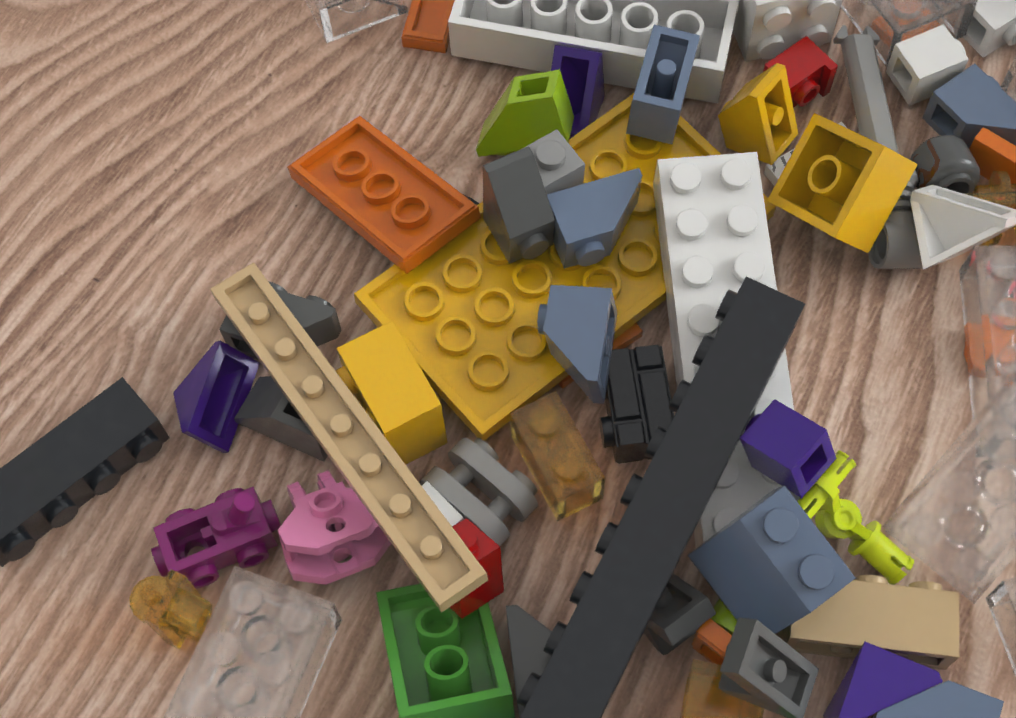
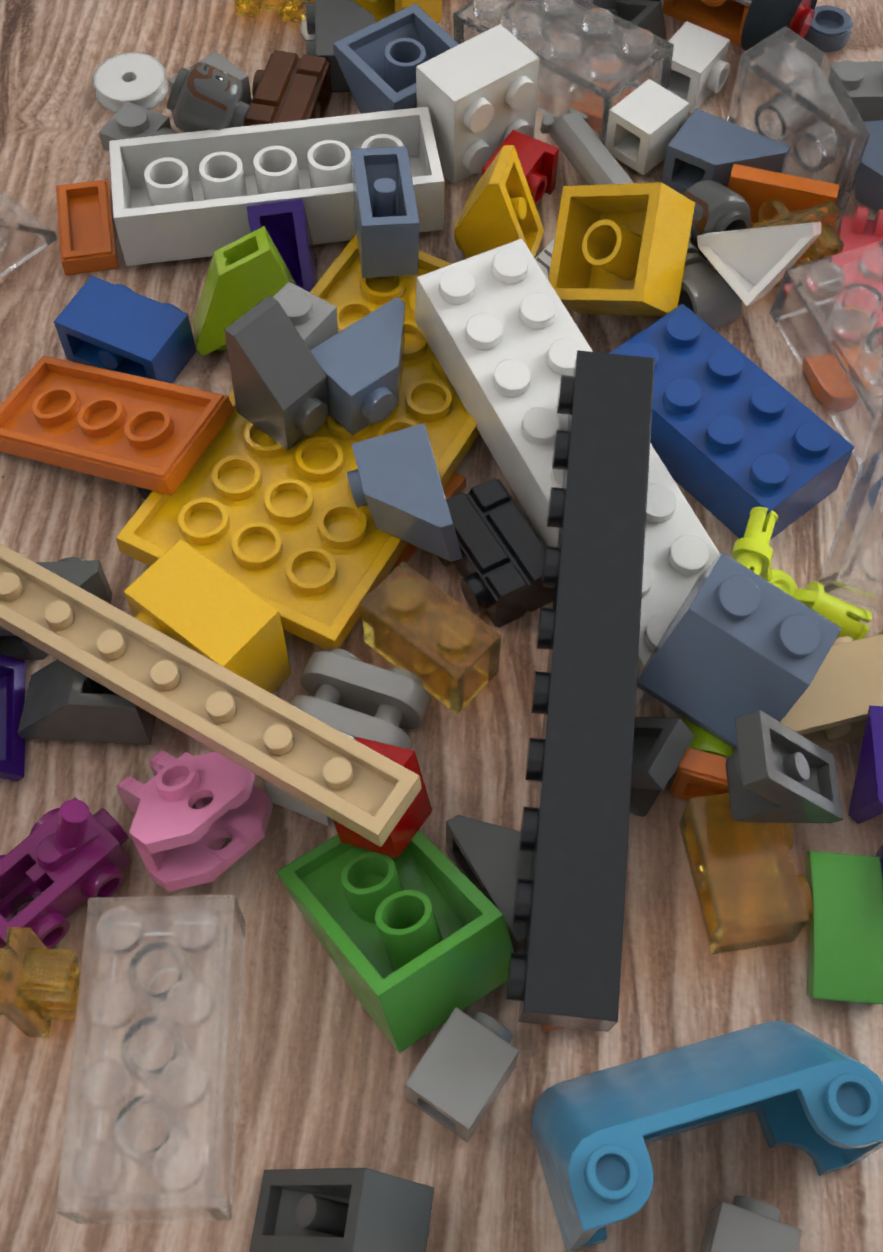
camera: 25 degrees left, 5 degrees down
(427, 120) = (125, 332): none -> blue brick
(788, 447) = (699, 517): dark purple brick -> none
(867, 361) = (732, 428): none -> blue brick

